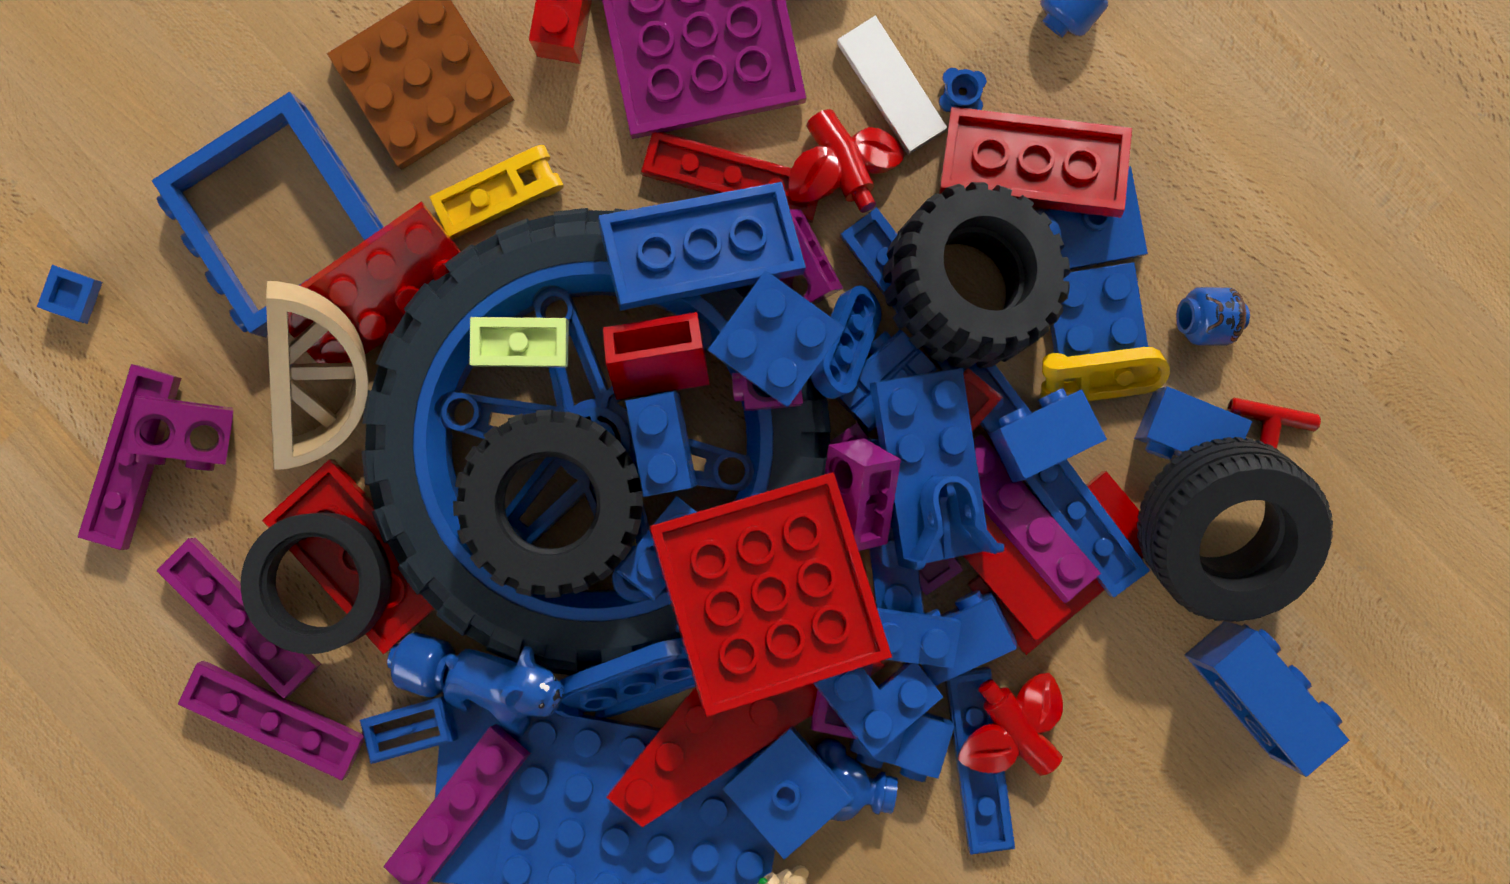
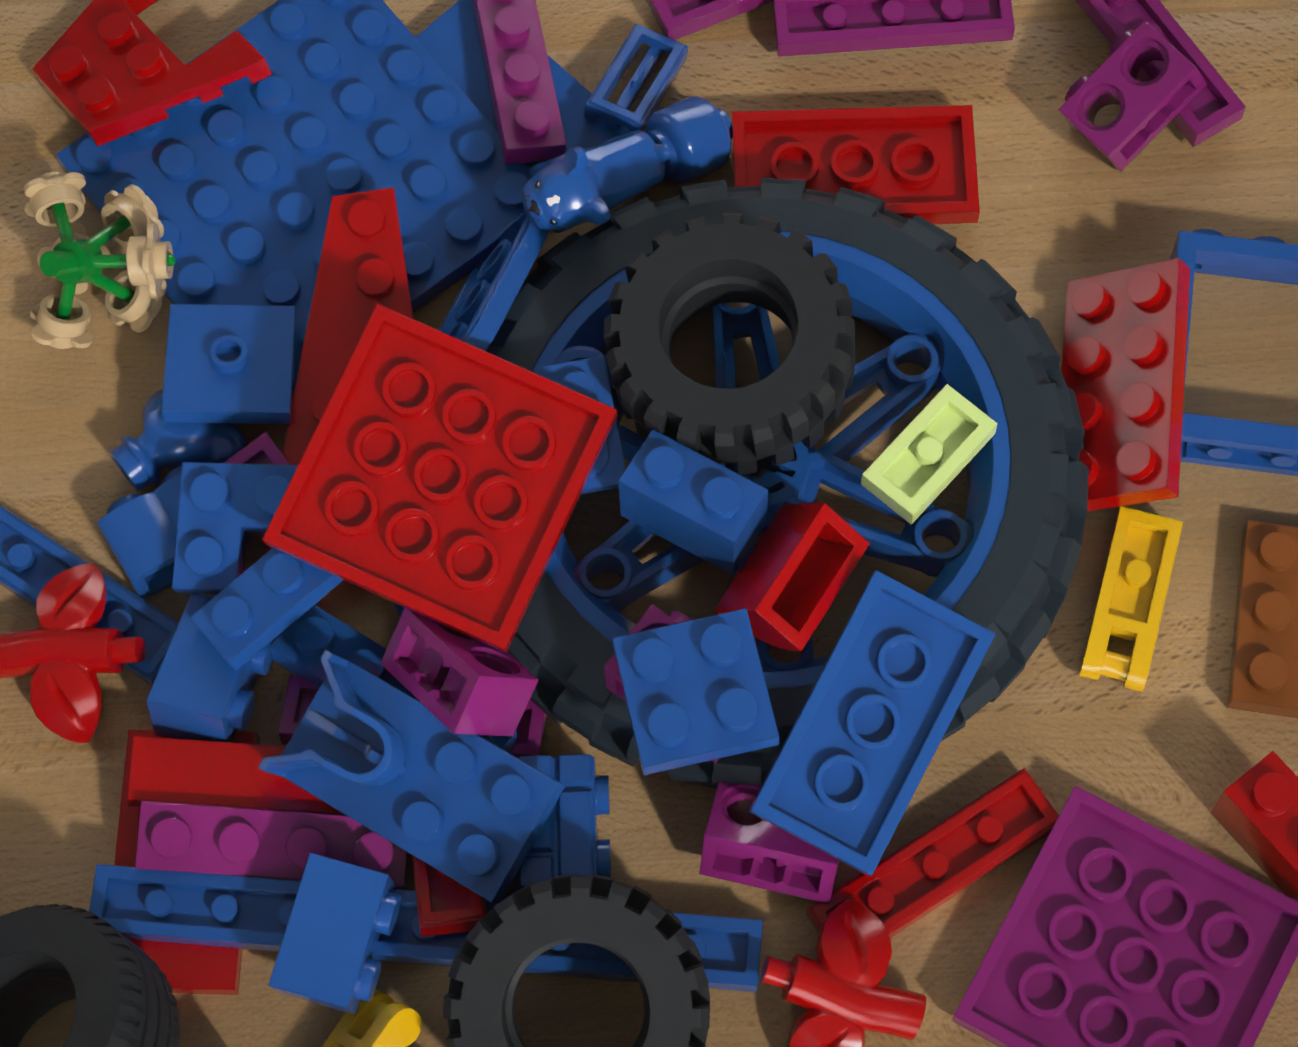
camera: 135 degrees right, 20 degrees down
(261, 595) = (874, 36): black tyre -> none
(337, 427) = (1131, 296): tan window -> none
(842, 365) = (632, 835): blue plate -> none

